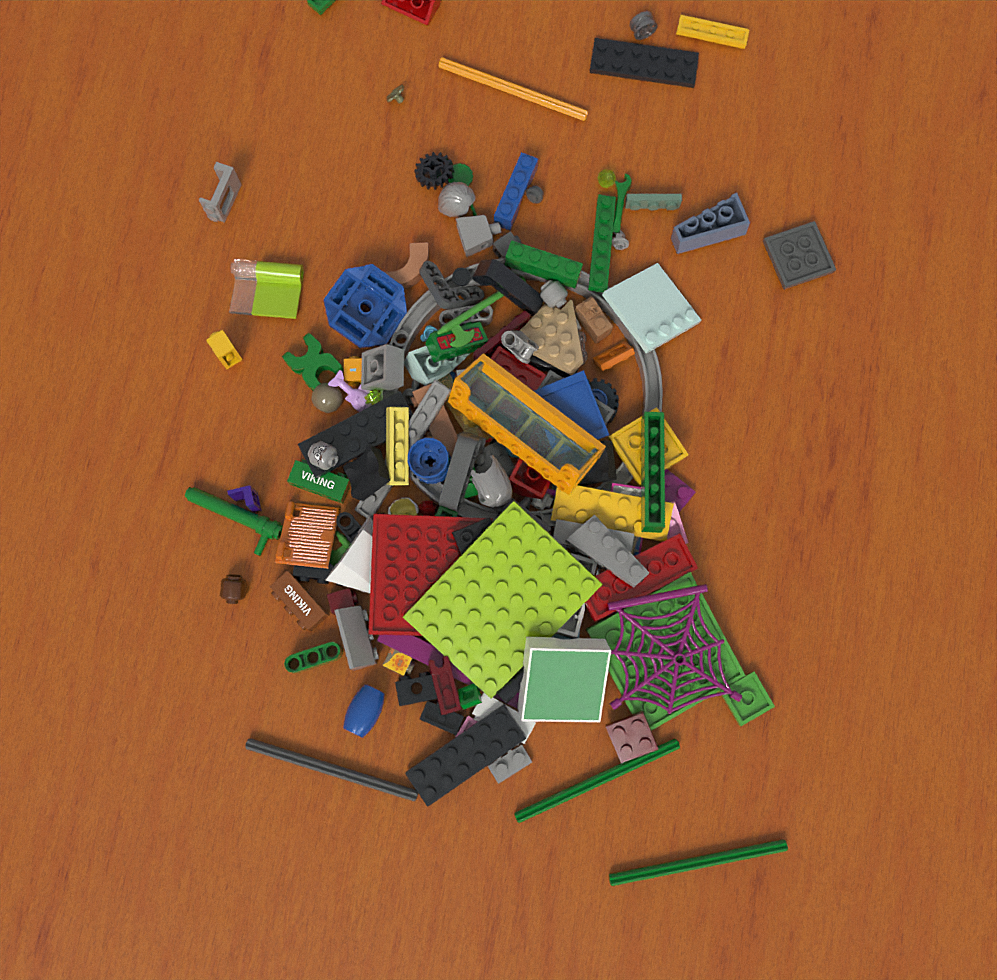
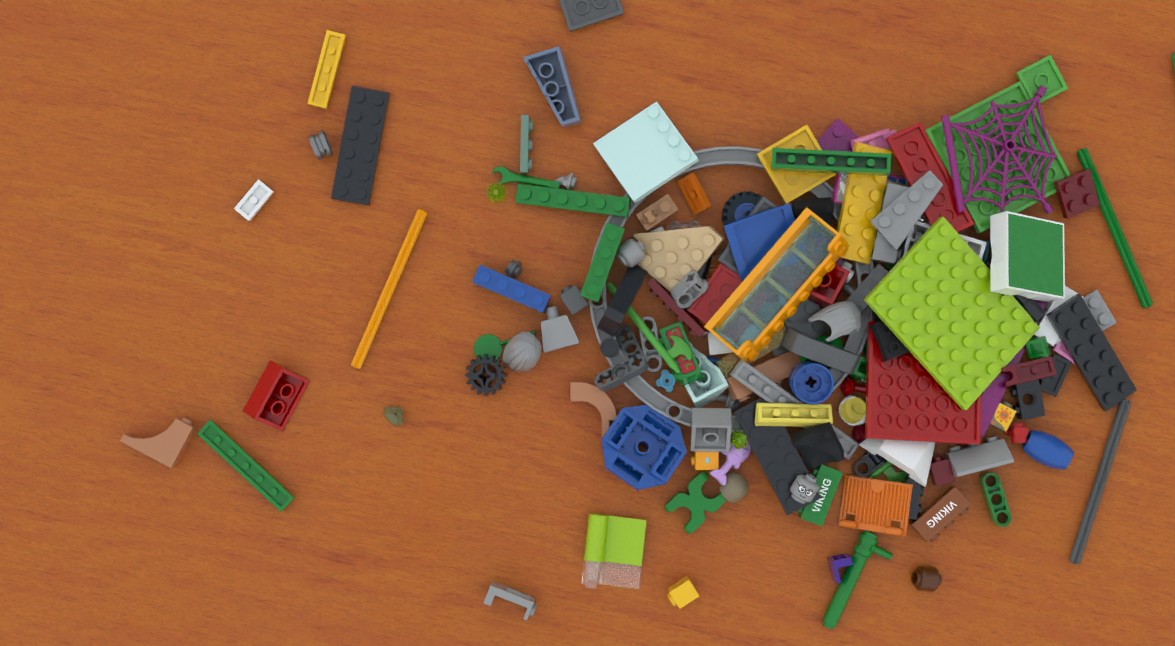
camera: 80 degrees left, 10 degrees up
(381, 678) = (1017, 432): none -> red plate

